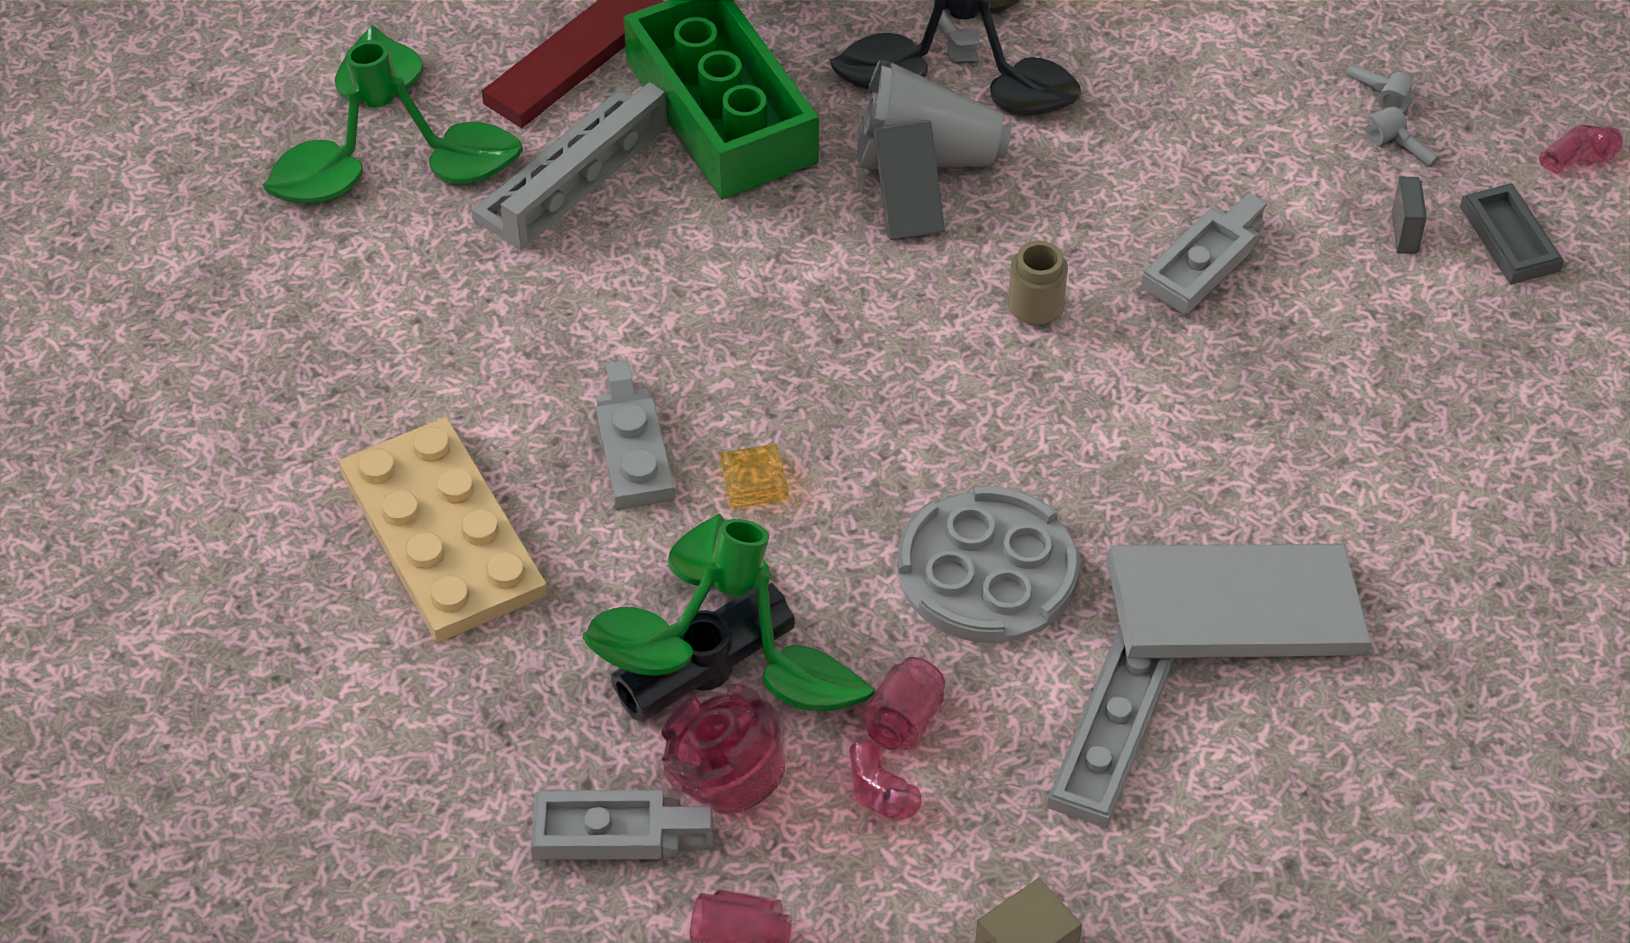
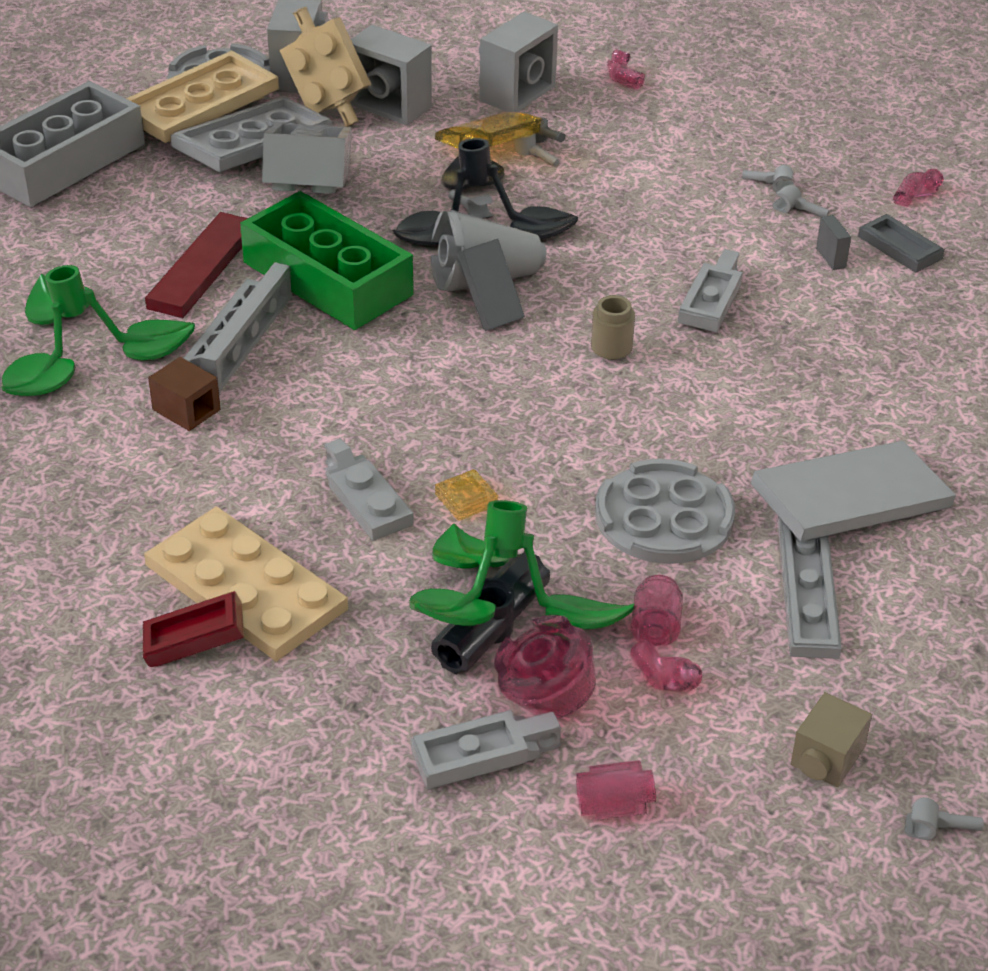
camera: 20 degrees left, 10 degrees down
(351, 579) = (192, 629): none -> dark red tile
(470, 247) = (184, 393): none -> reddish brown brick

